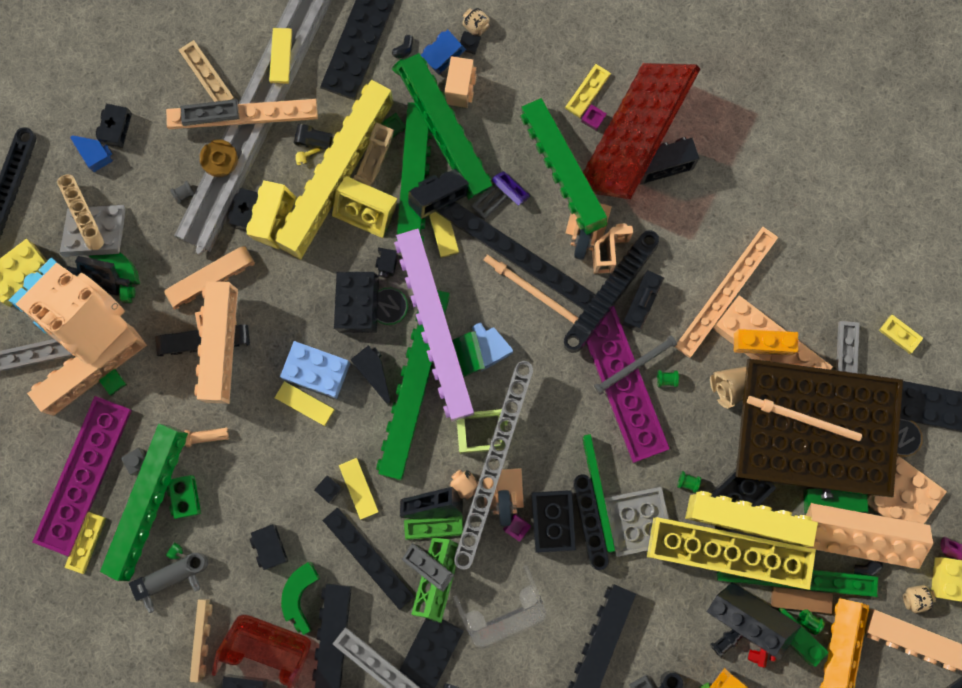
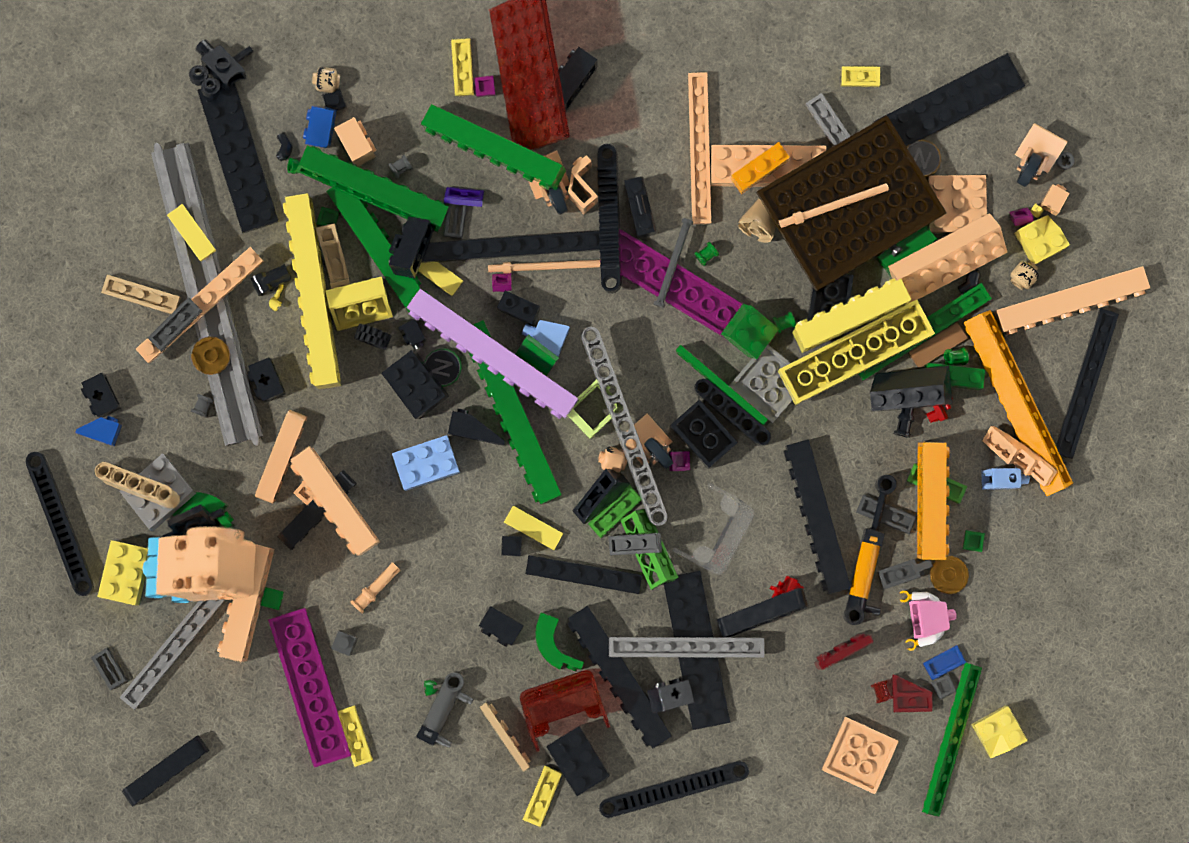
camera: 35 degrees left, 5 degrees up
(144, 503) = (377, 667): green brick -> none
(189, 495) = (407, 636): green brick -> none
(270, 212) = (290, 367): light yellow slope -> none
(304, 403) = (437, 496): light yellow tile -> none
(353, 239) = (372, 336): none -> black tyre
(480, 128) = (400, 166): none -> dark grey bush
(484, 305) = (518, 307): none -> black brick
(487, 276) = (501, 282): none -> magenta plate
(655, 467) = (749, 331): none -> green brick

